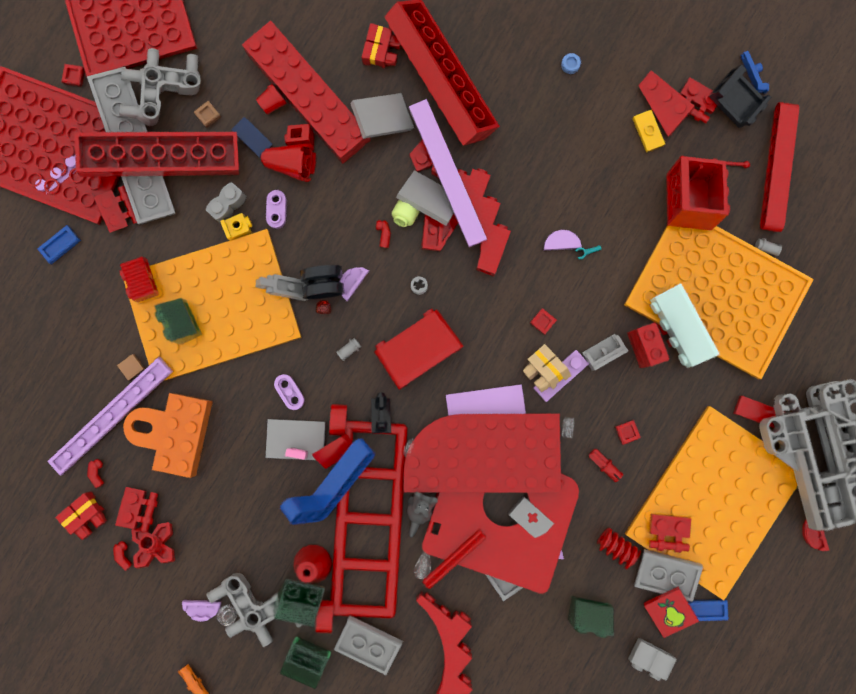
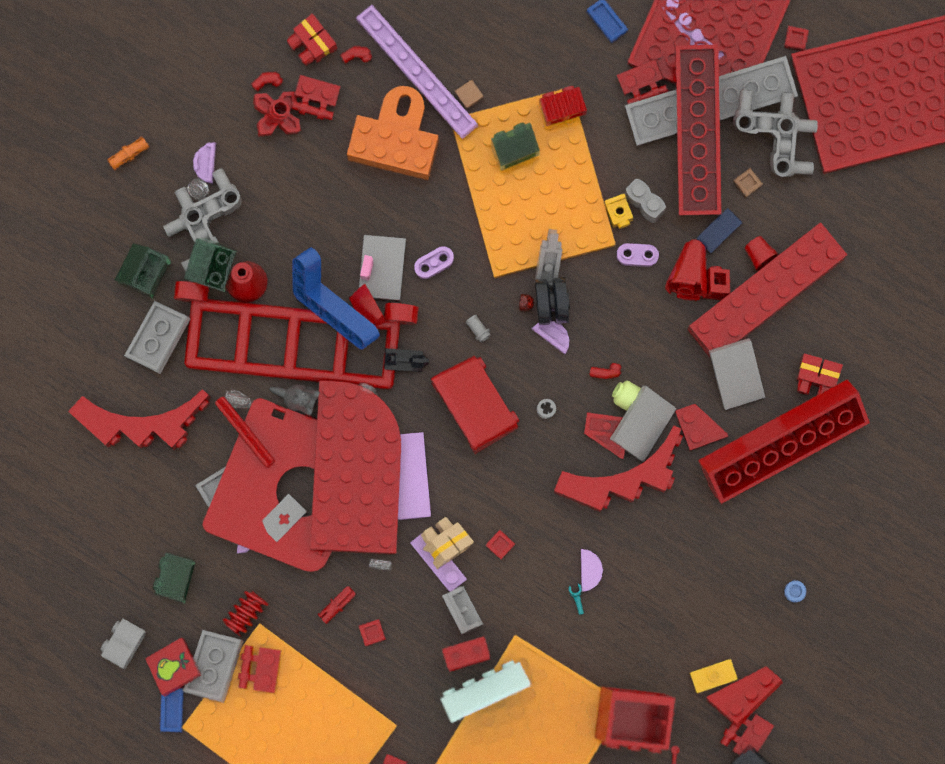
camera: 95 degrees right, 5 degrees down
(447, 173) = (668, 442): lavender tile -> none

